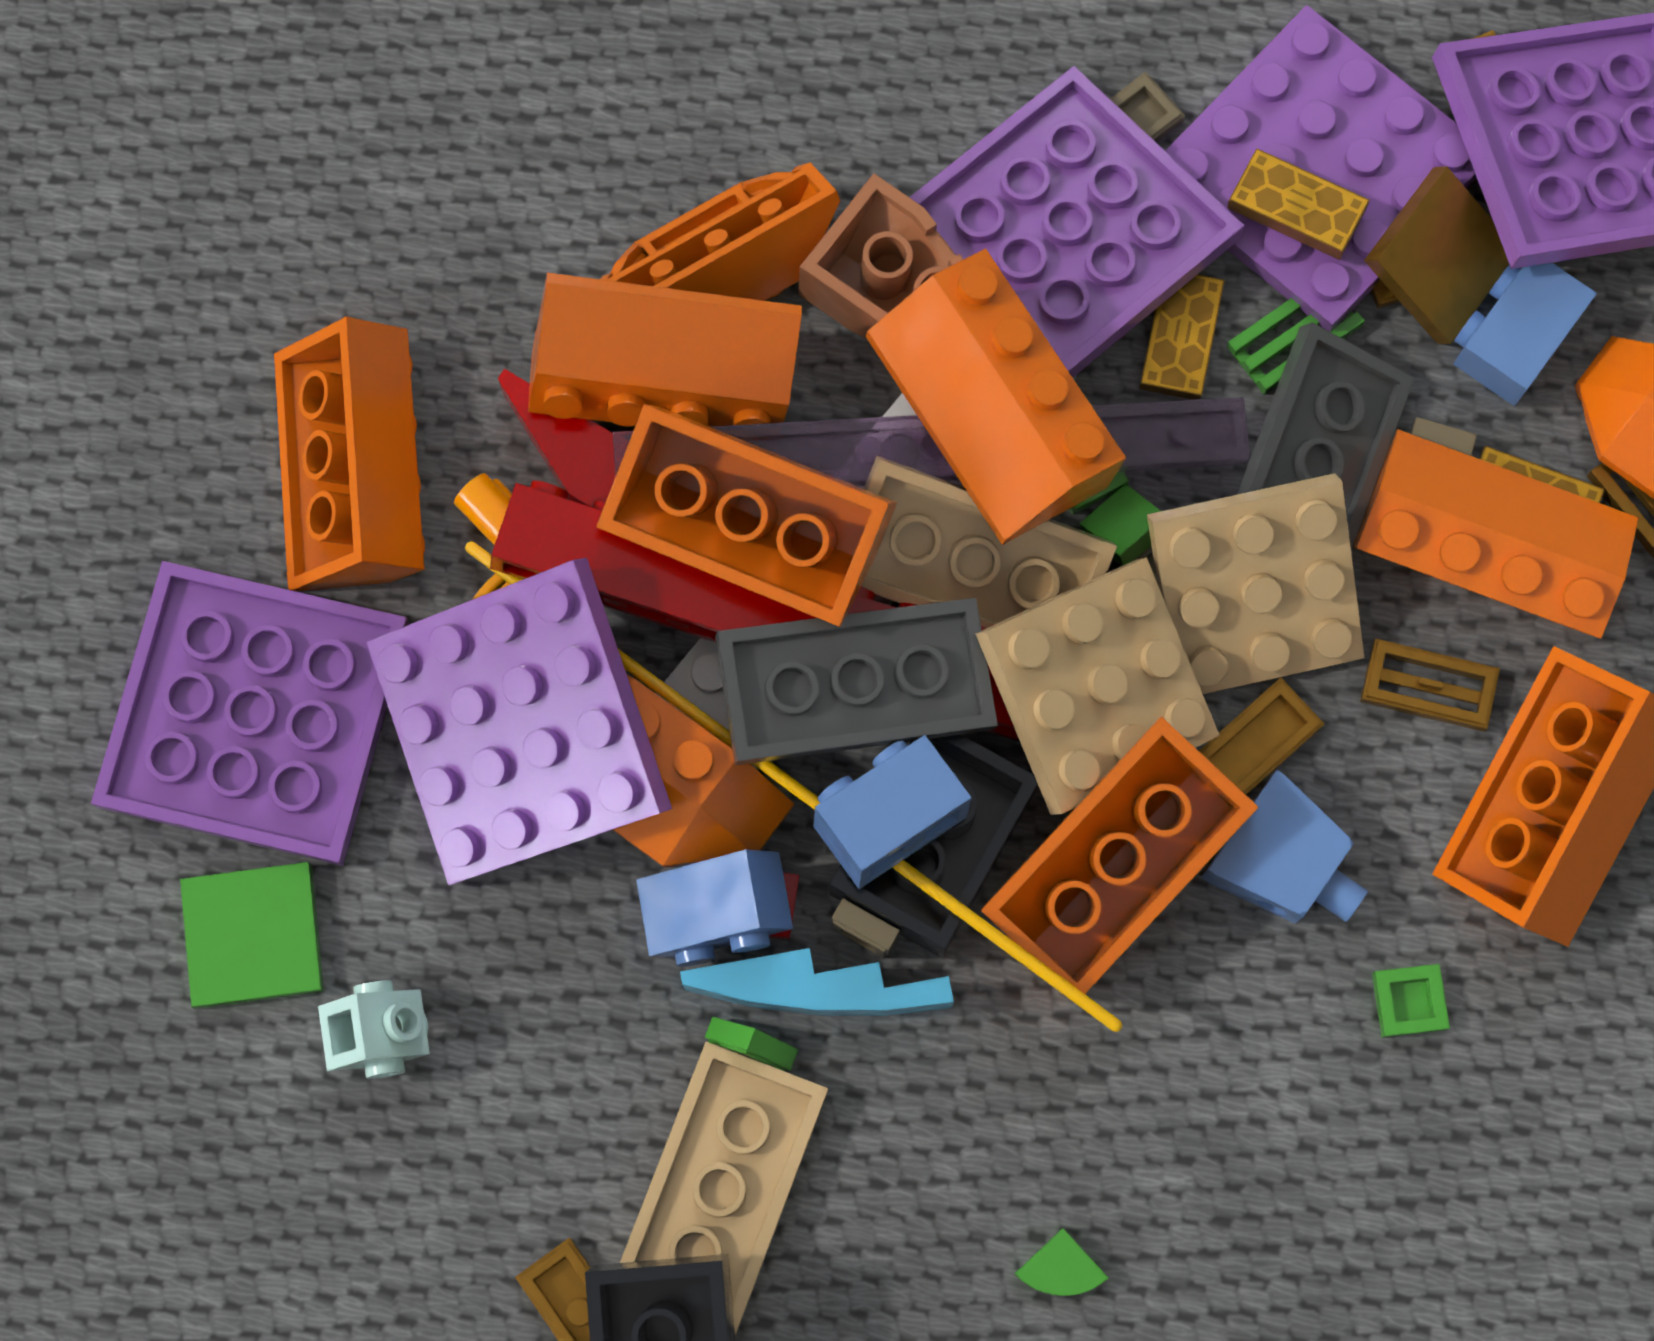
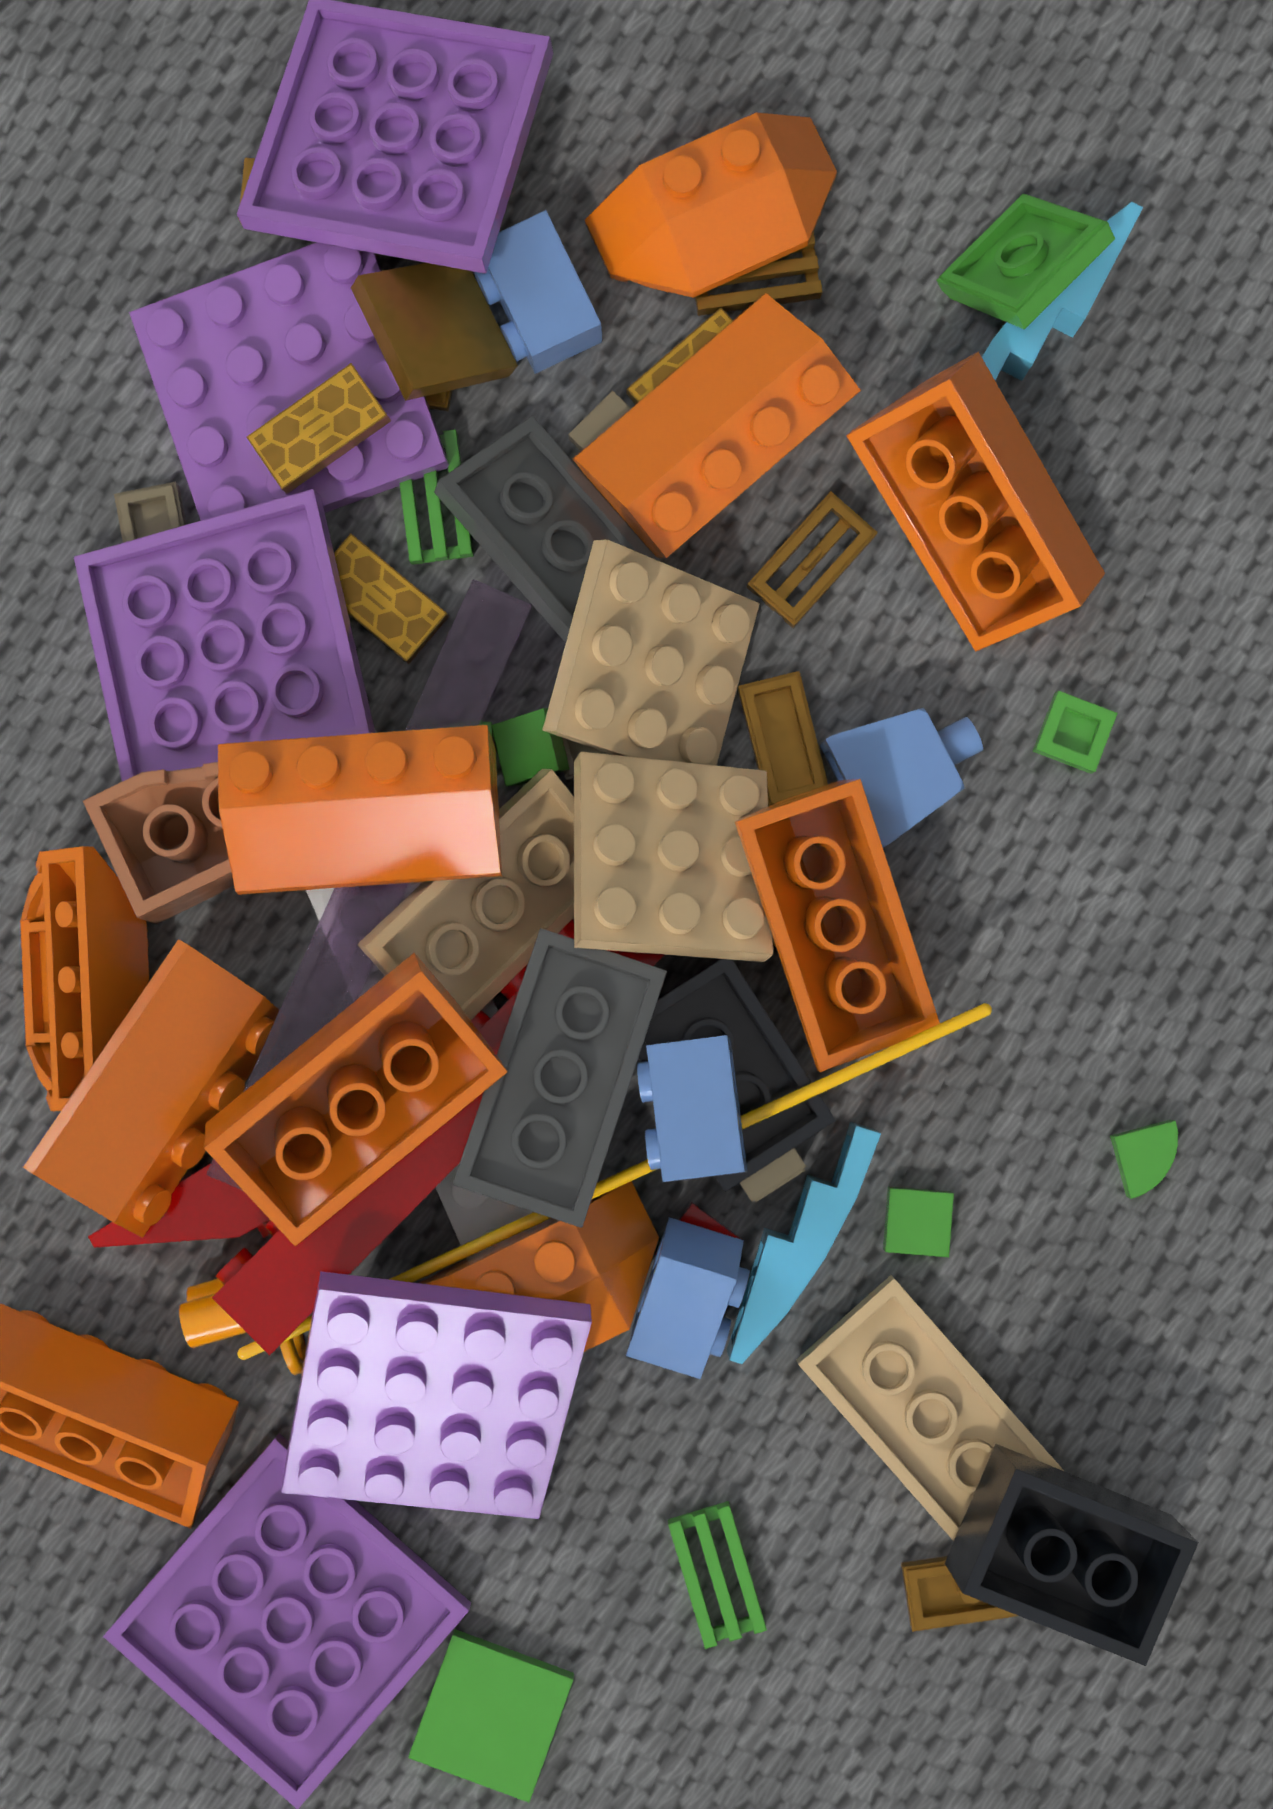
camera: 65 degrees left, 10 degrees up
(374, 1030) = (638, 1654): light aqua brick -> none
(436, 1110) = (732, 1627): none -> bright green tile
(751, 1043) = (818, 1324): bright green tile -> none
(889, 1089) = (918, 1221): none -> bright green tile

